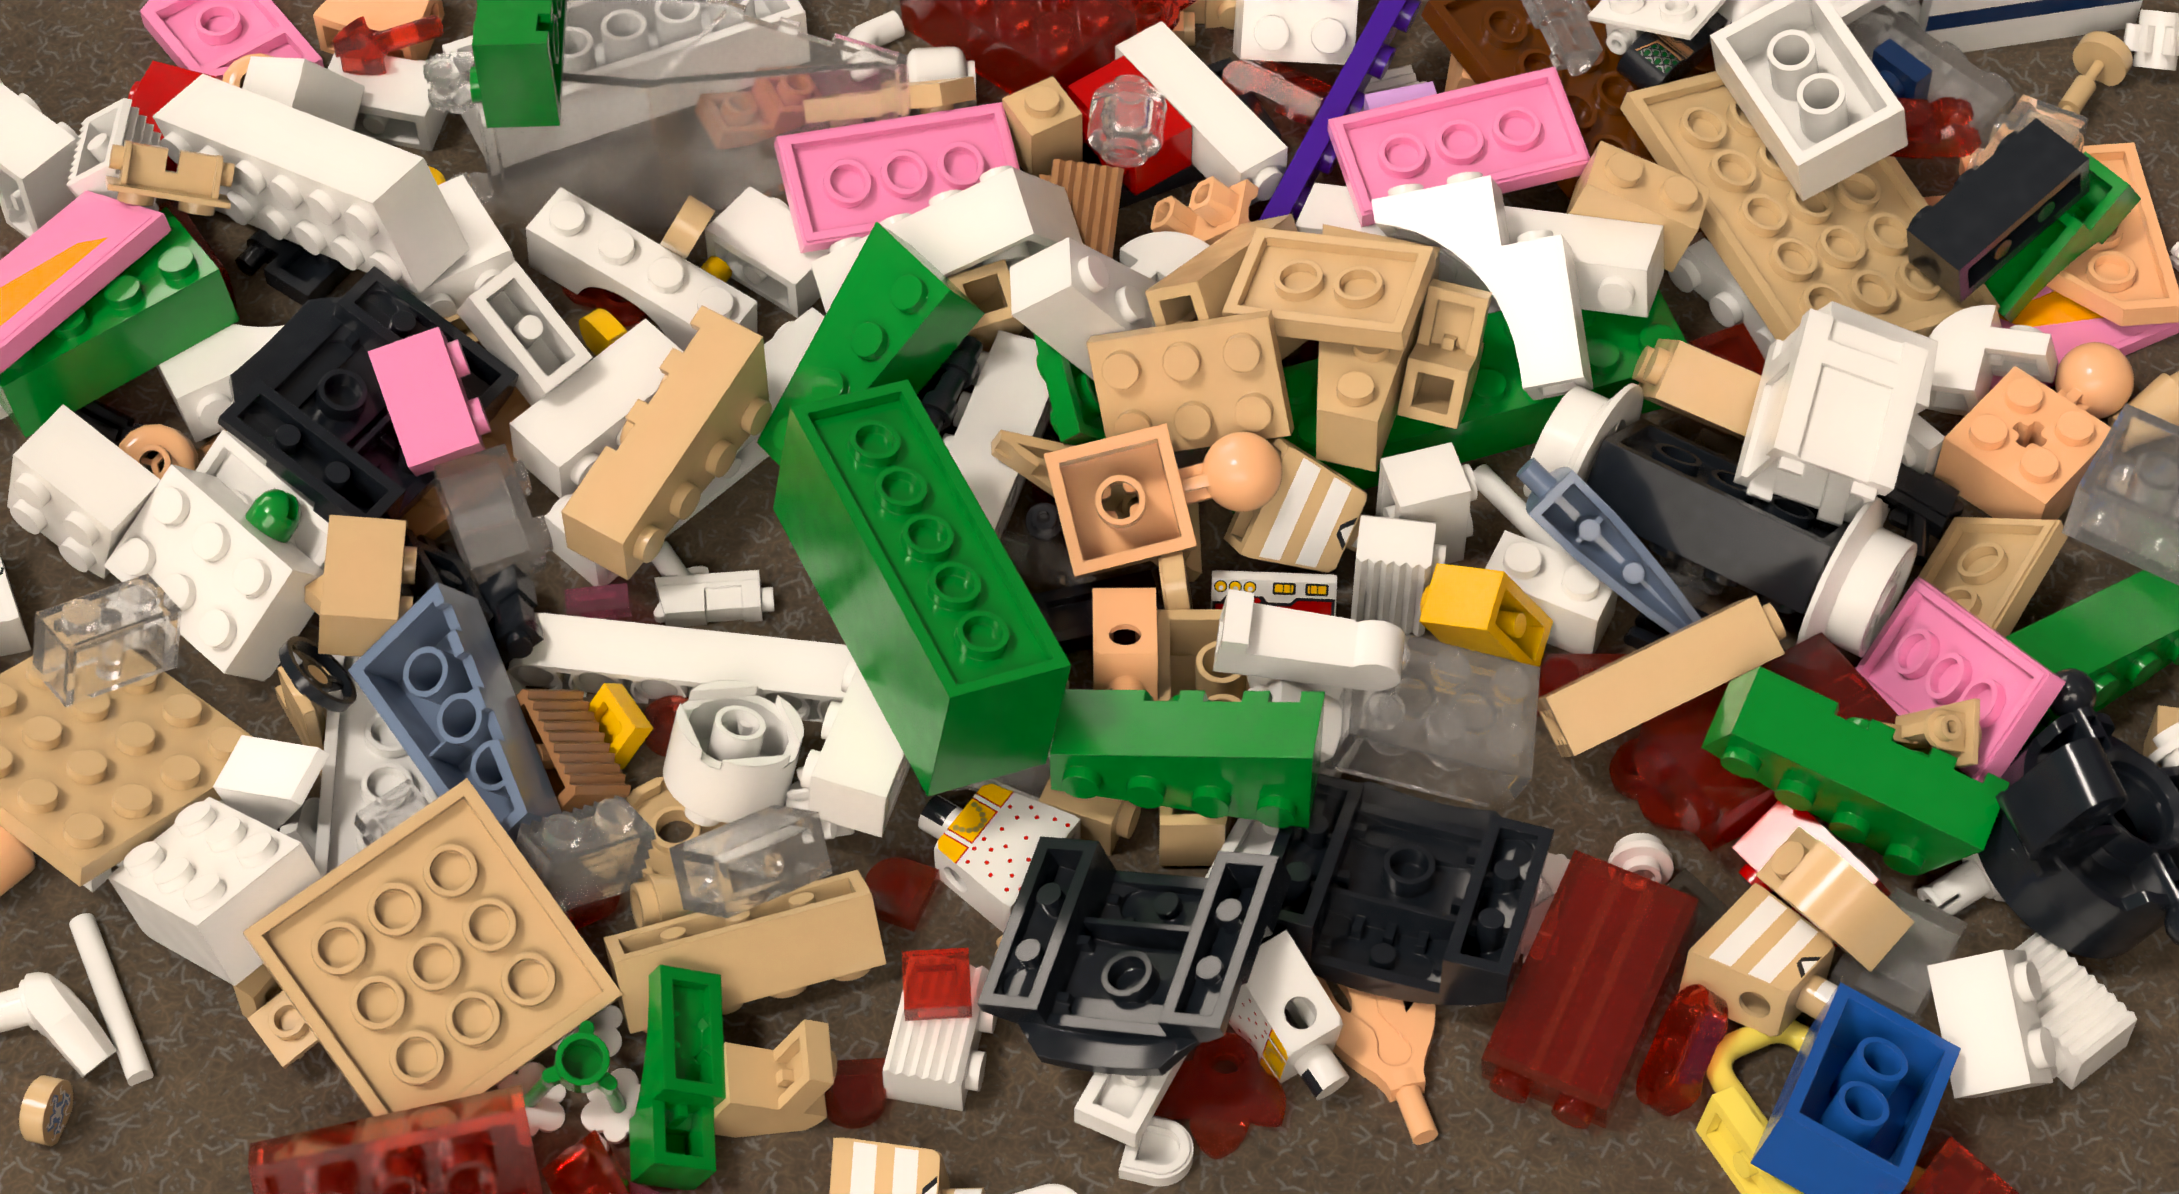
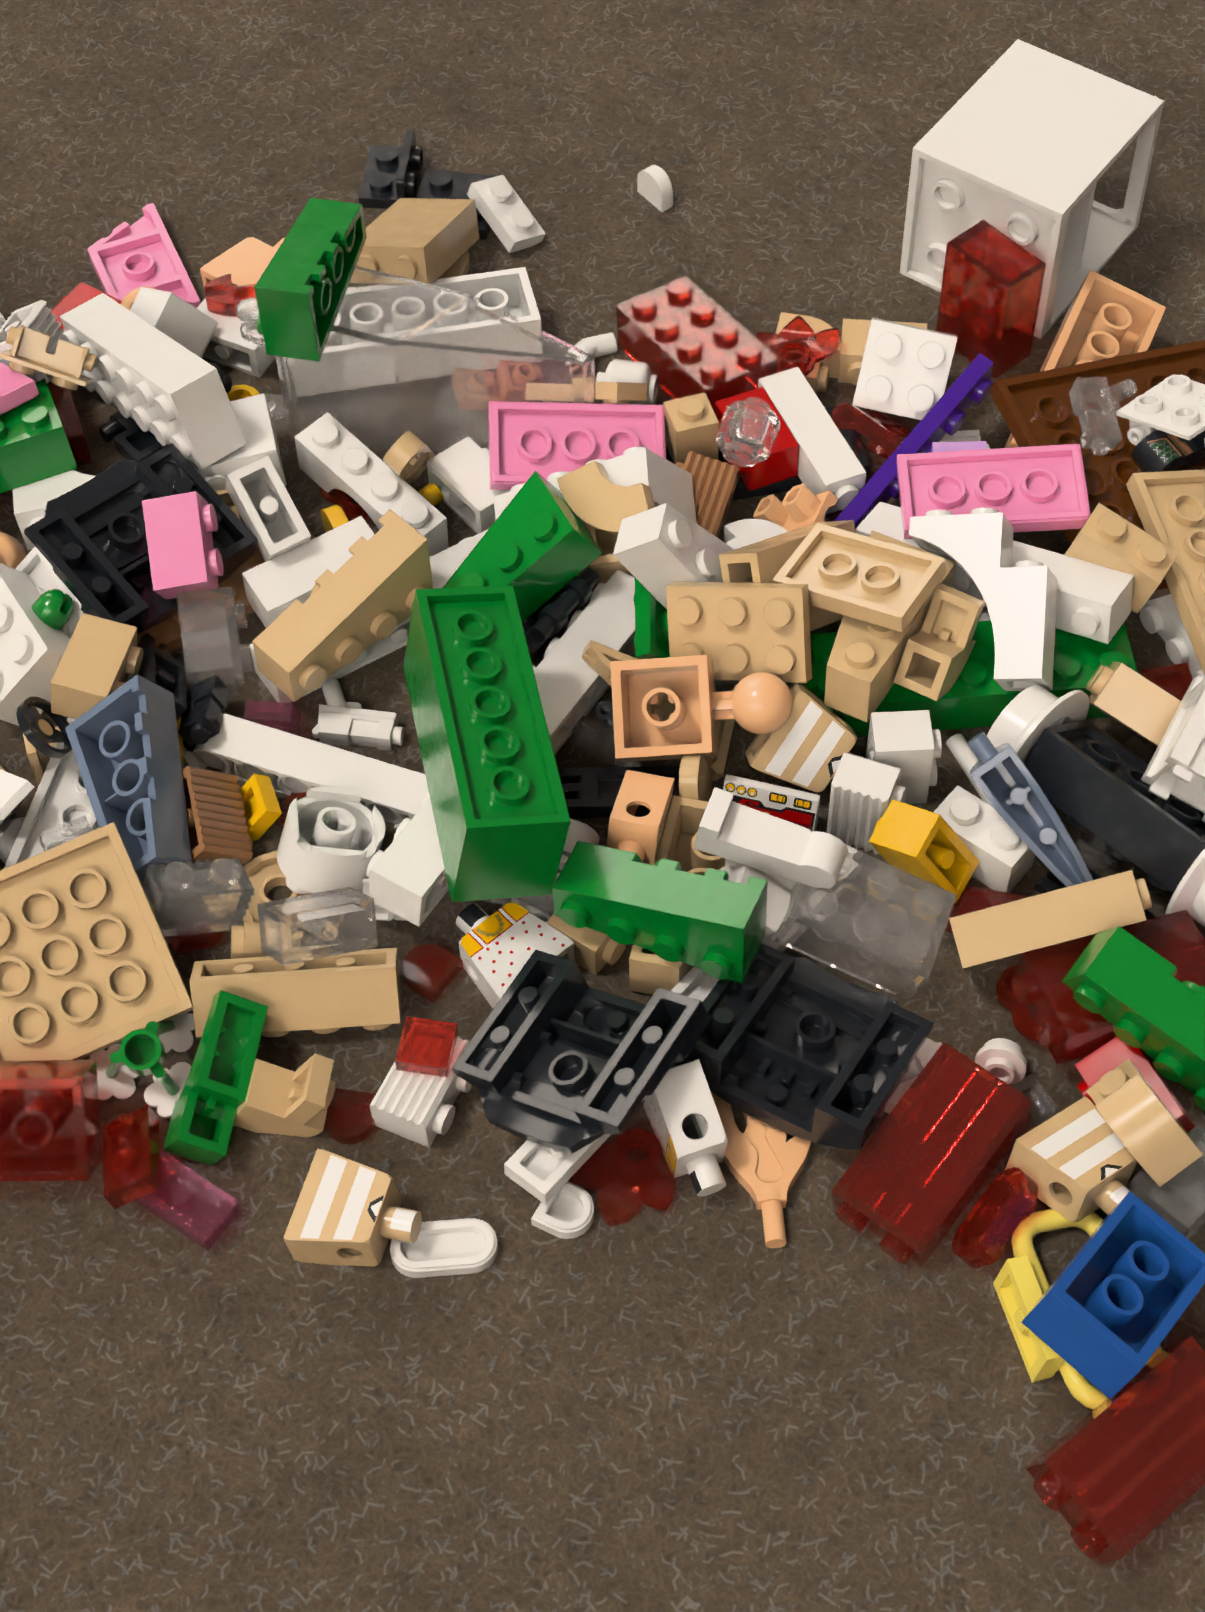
camera: 15 degrees right, 0 degrees up
(972, 248) = (600, 500): none -> tan tile

